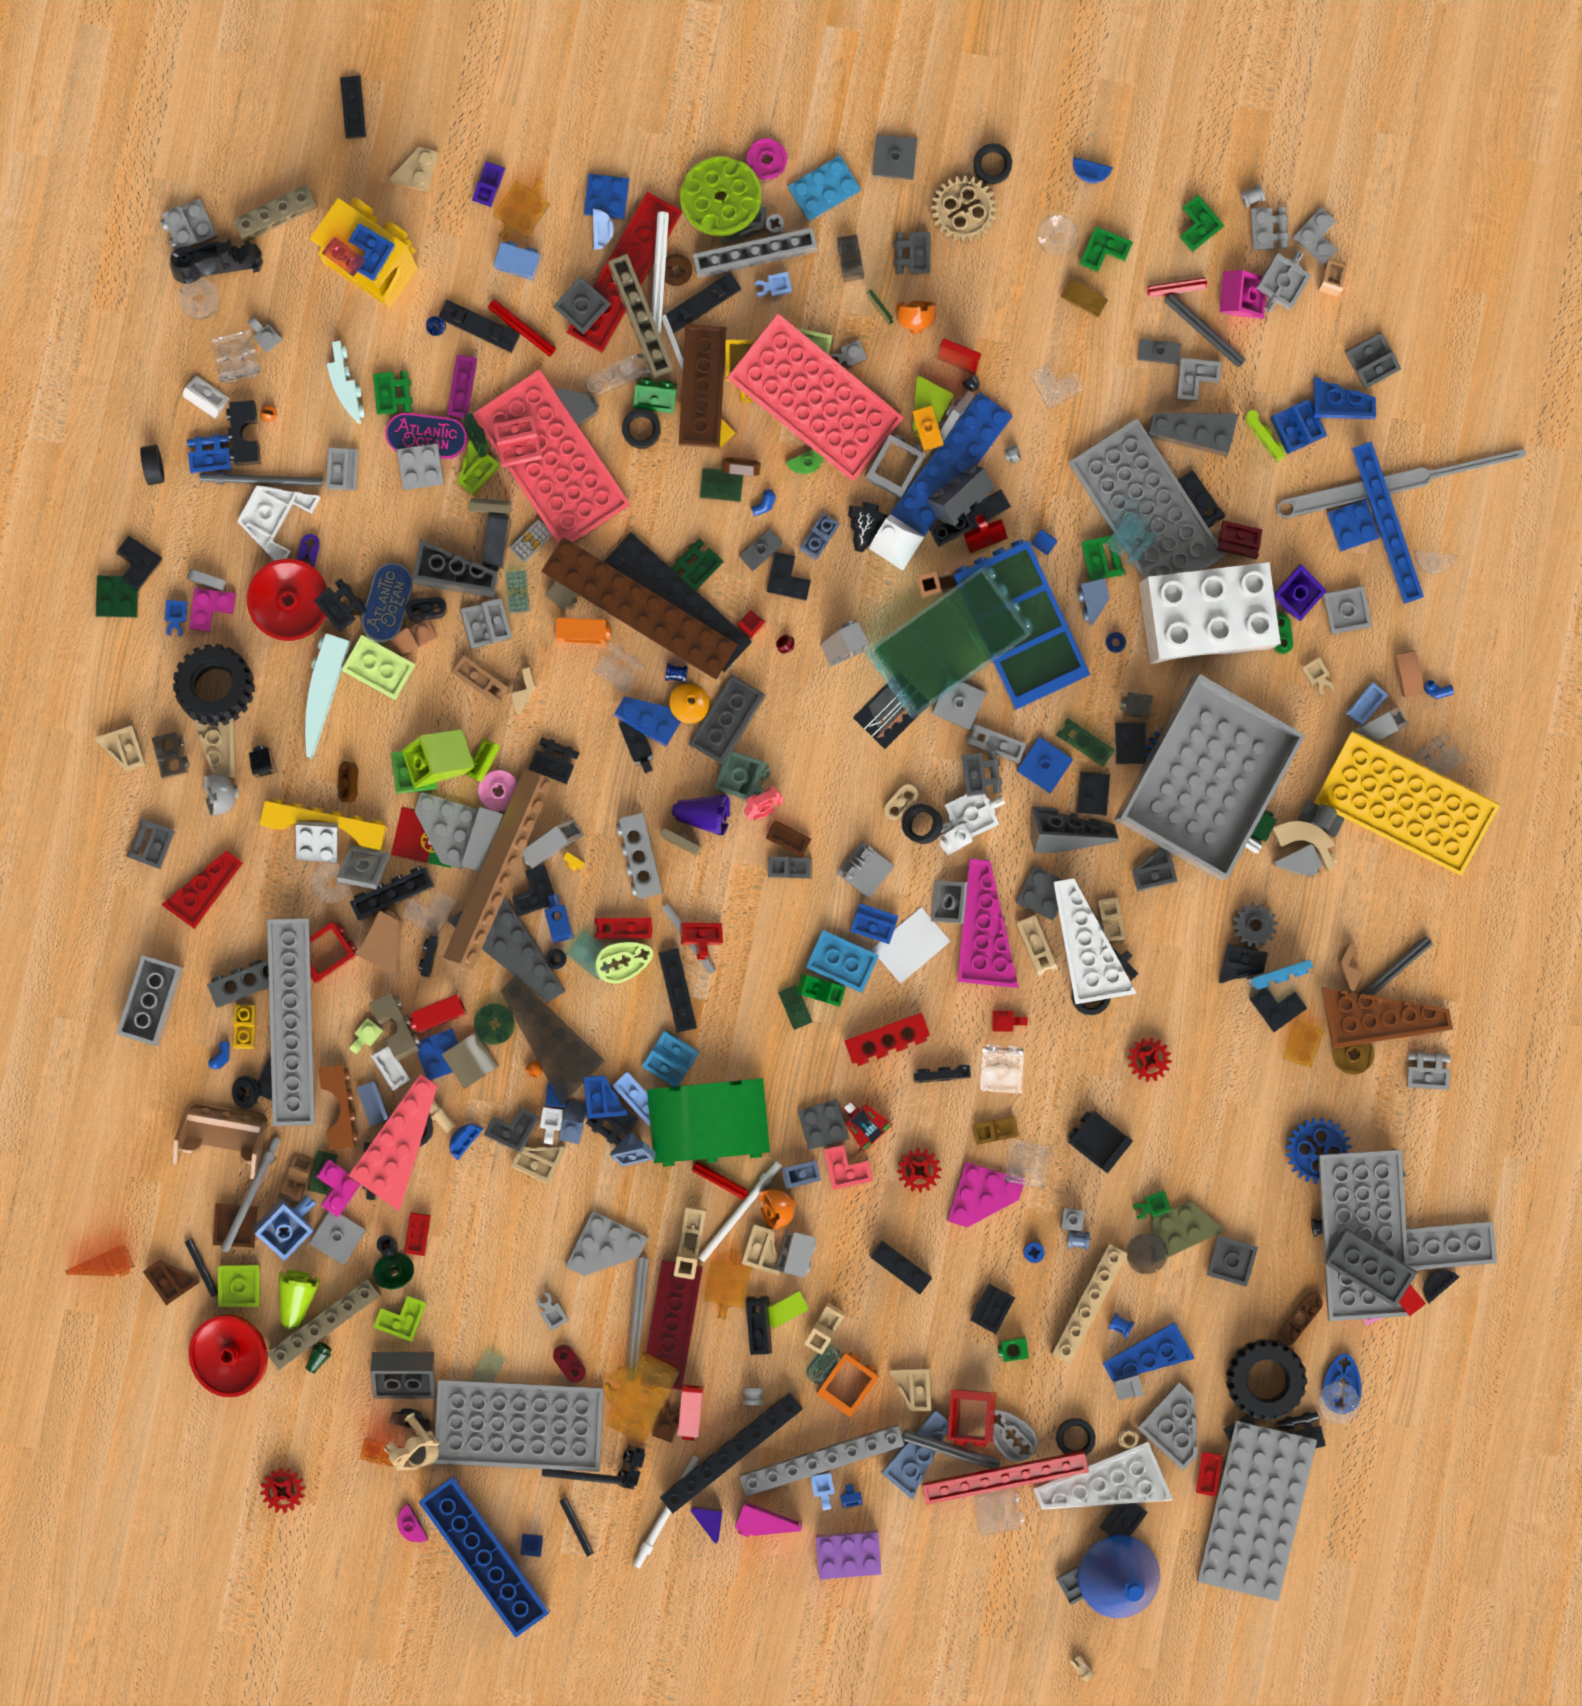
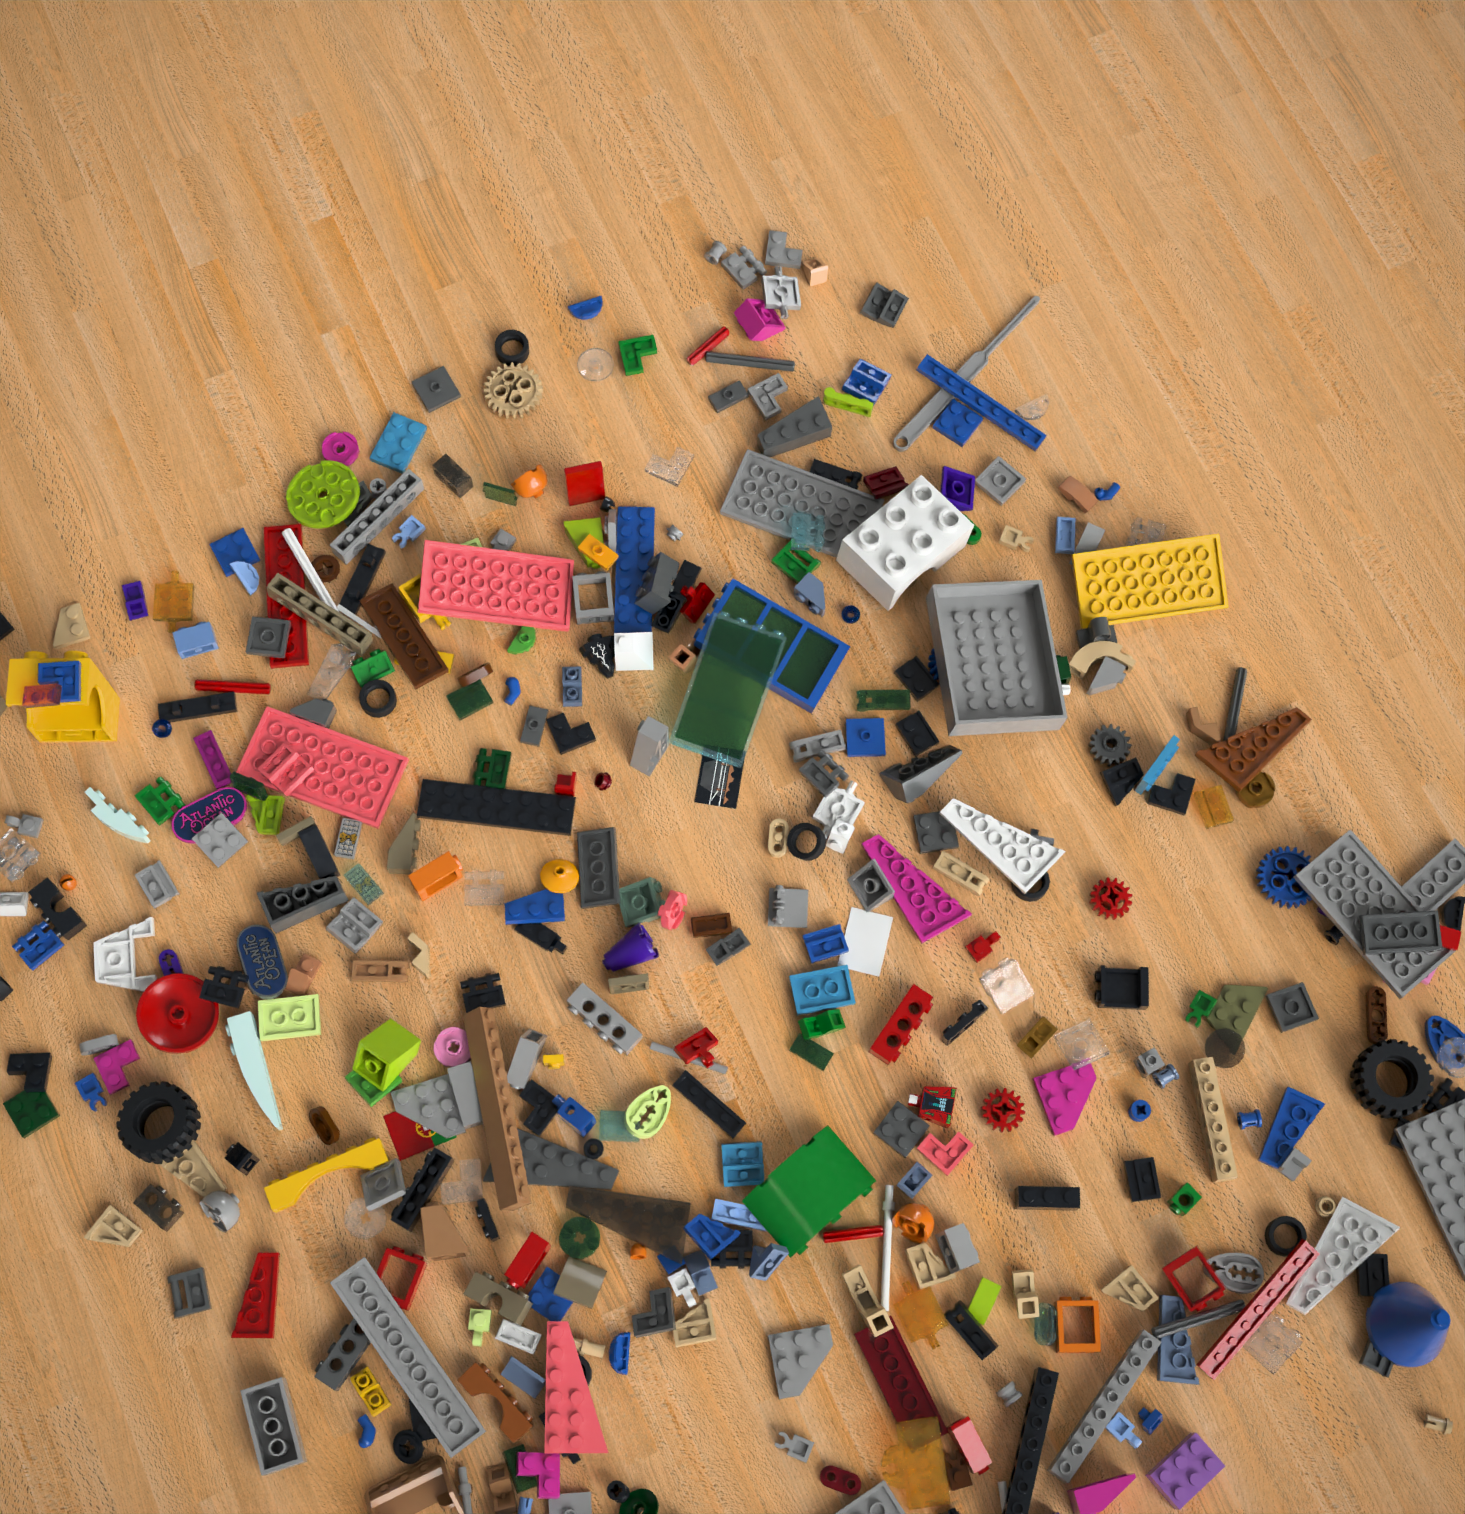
camera: 40 degrees left, 15 degrees down
(222, 478) = (60, 957): dark grey bar -> none
(317, 841) = (330, 1191): plate -> none
(417, 1234) = (636, 1462): red plate -> none
(426, 607) = (297, 945): black plate -> none
(483, 759) = (424, 1031): lime plate -> none
(623, 928) = (631, 1085): red plate -> none
(637, 1313) = (866, 1394): light grey axle -> none
(639, 608) = (469, 828): reddish brown plate -> none
(676, 673) = (533, 859): clear blue bush -> none
(919, 253) = (503, 442): dark grey plate -> none
(960, 705) = (769, 737): light grey plate -> none
(1044, 542) = (745, 576): blue slope -> none
(1084, 298) = (643, 394): pearl gold slope -> none
(1112, 919) = (1001, 812): tan slope -> none
(1136, 705) = (901, 644): clear smoke brick -> none
(1155, 871) = (1007, 756): dark grey wing -> none
(1173, 1426) = (1351, 1170): light grey plate -> none
(1205, 224) = (695, 291): green plate -> none
(1209, 1474) = (1407, 1188): red plate -> none
(1337, 402) = (884, 347): blue wing -> none
(1428, 1077) = (1320, 768): light grey plate -> none

